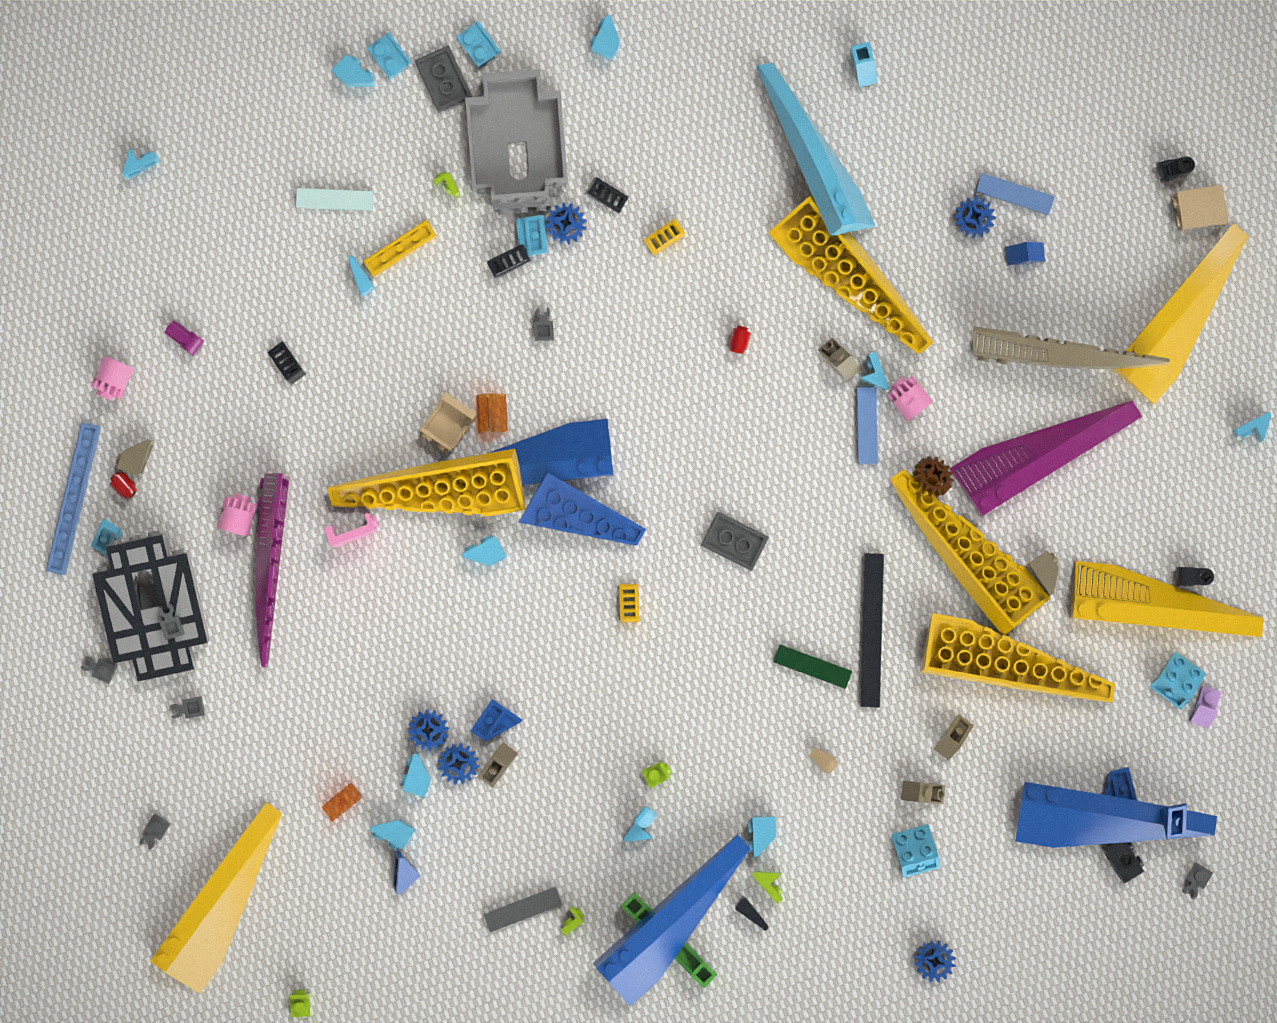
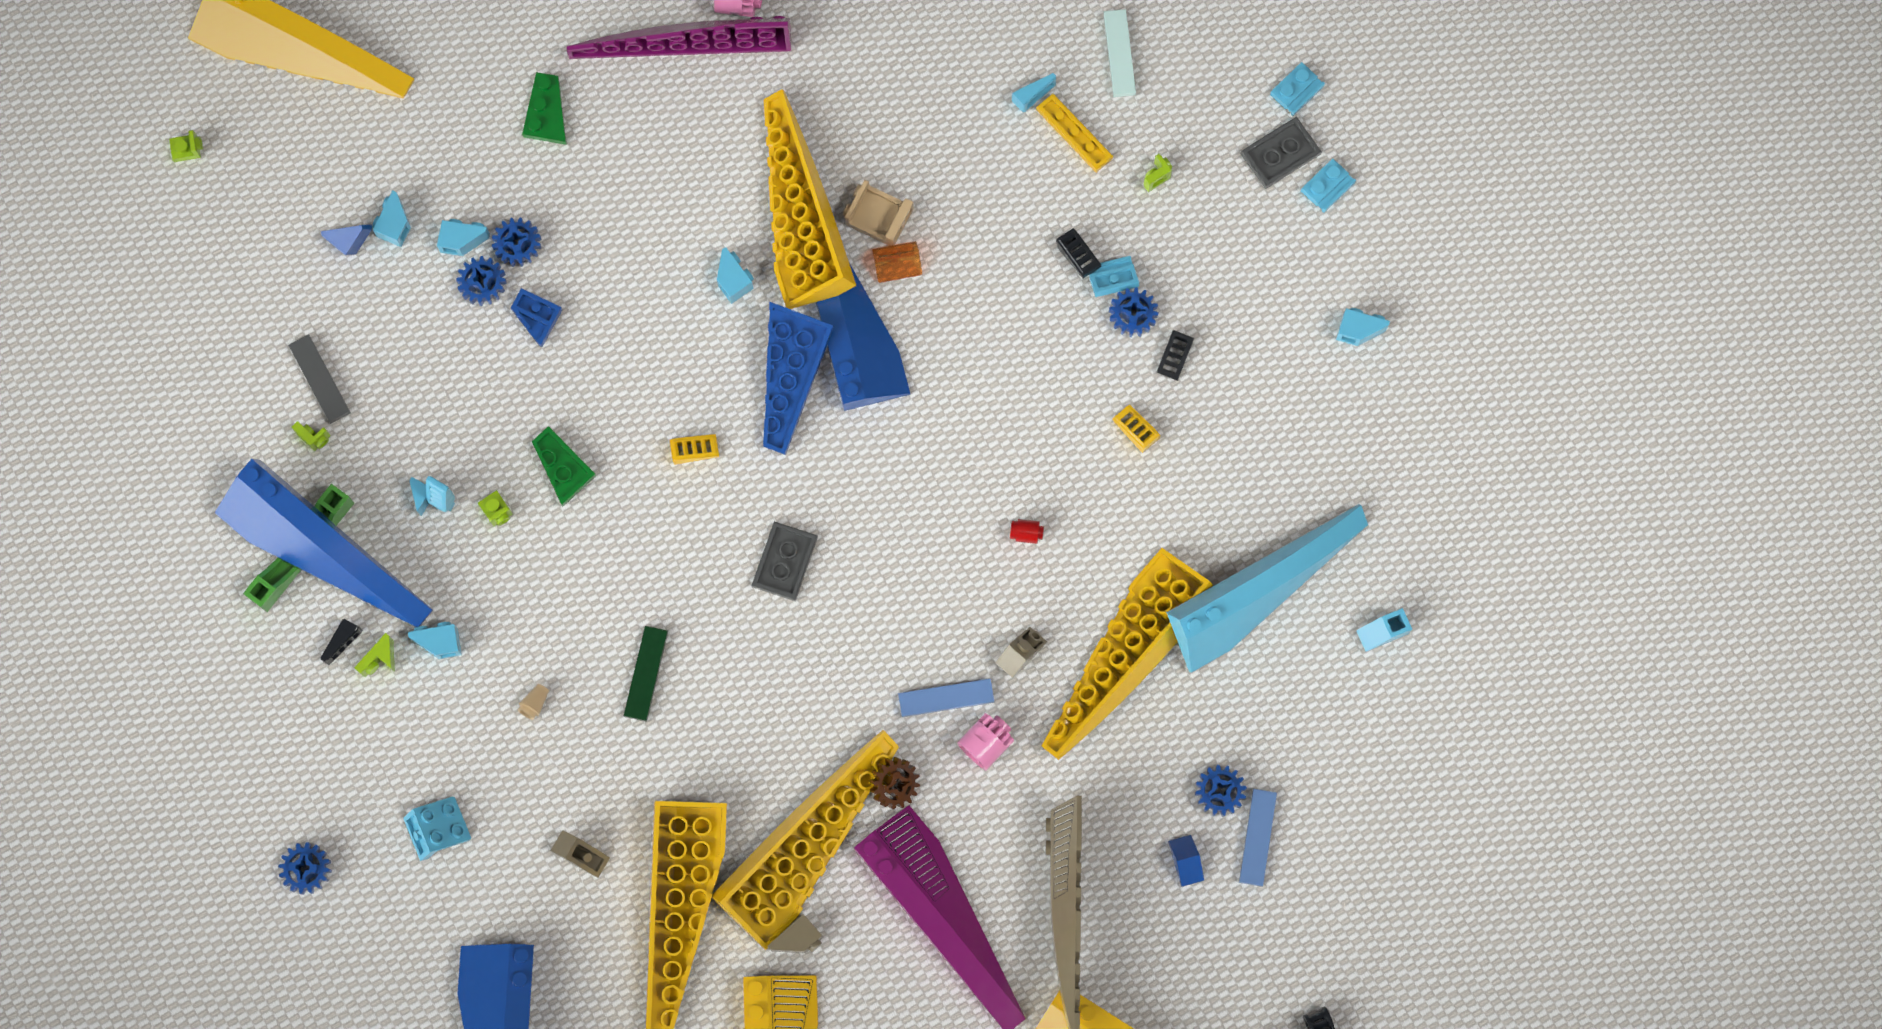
camera: 75 degrees right, 10 degrees down
(295, 371) = (911, 37): black slope -> none
(313, 692) = (545, 114): none -> green wing
(337, 540) = (726, 104): bright pink panel -> none
(342, 802) = (422, 160): clear orange panel -> none
(351, 74) = (1268, 49): medium azure slope -> none
(497, 764) = (485, 325): dark tan slope -> none
(514, 113) = (1255, 235): light grey panel -> none
(543, 328) = (1004, 304): dark grey plate -> none
(628, 714) = (563, 466): none -> green wing
(872, 630) = (698, 738): black tile -> none
(877, 378) = (1006, 700): medium azure slope -> none
(923, 792) = (508, 825): dark tan slope -> none

